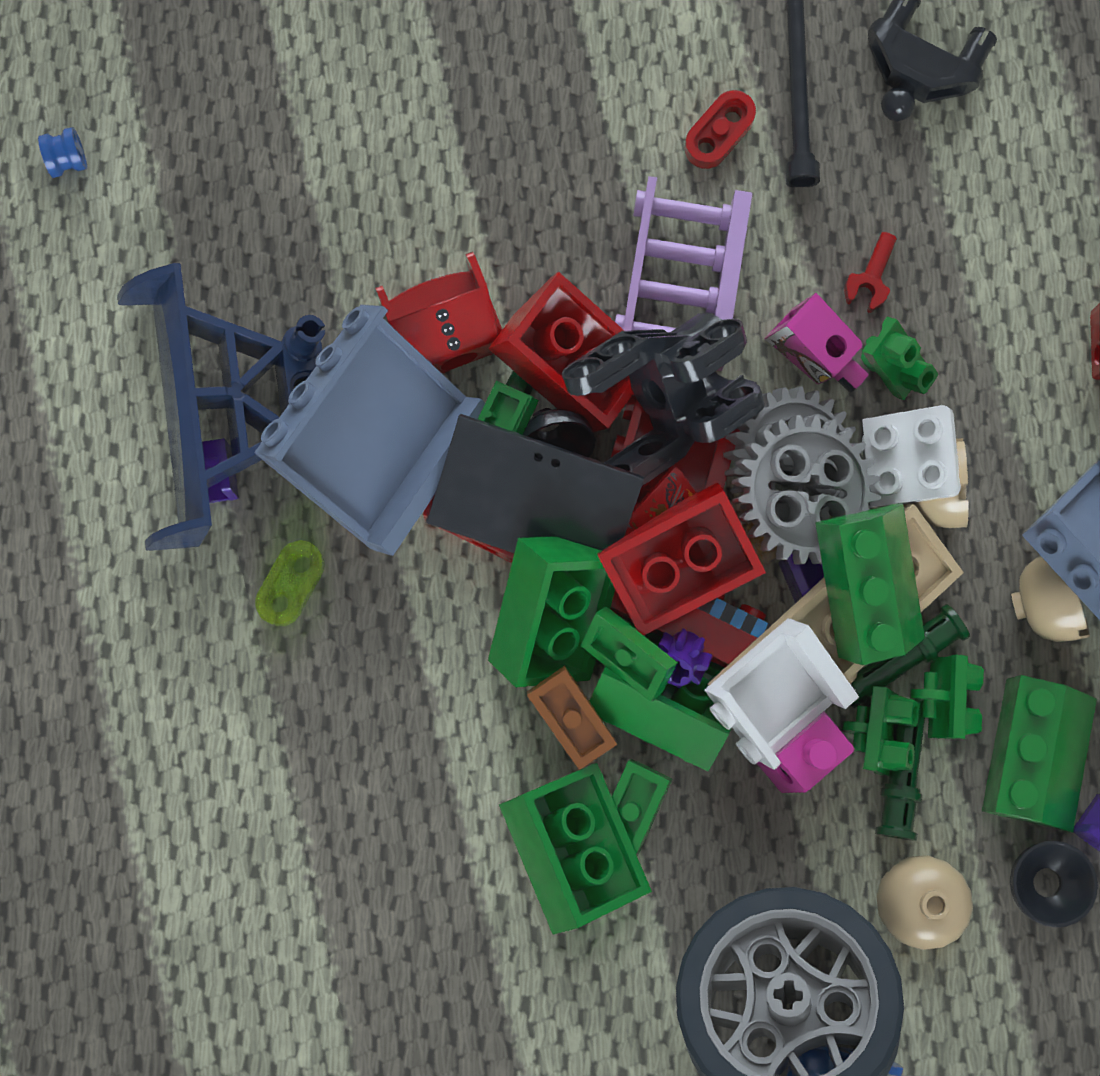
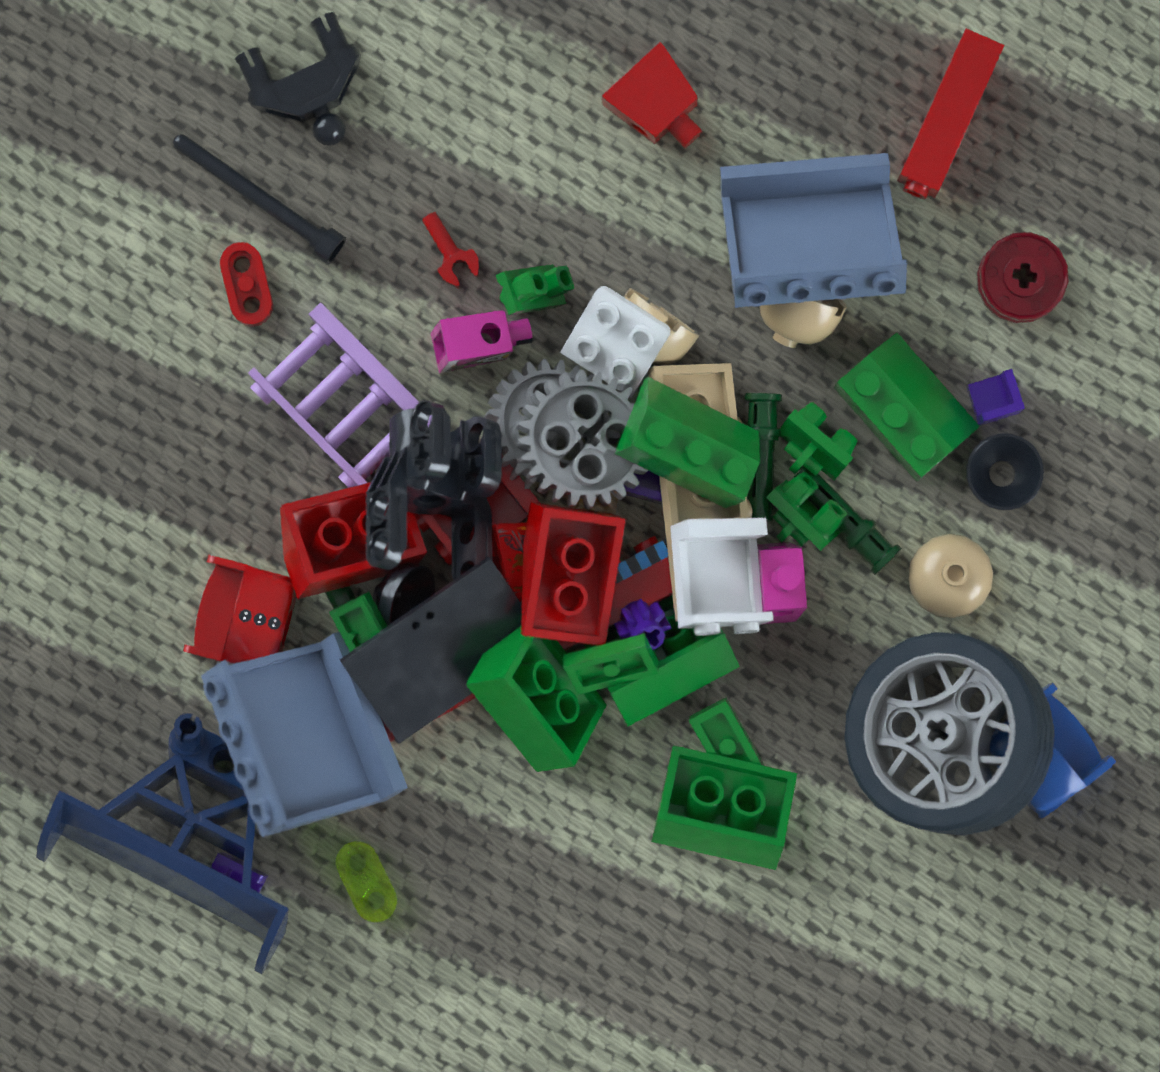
camera: 50 degrees left, 5 degrees up
(571, 718) = (627, 740): dark orange plate -> none

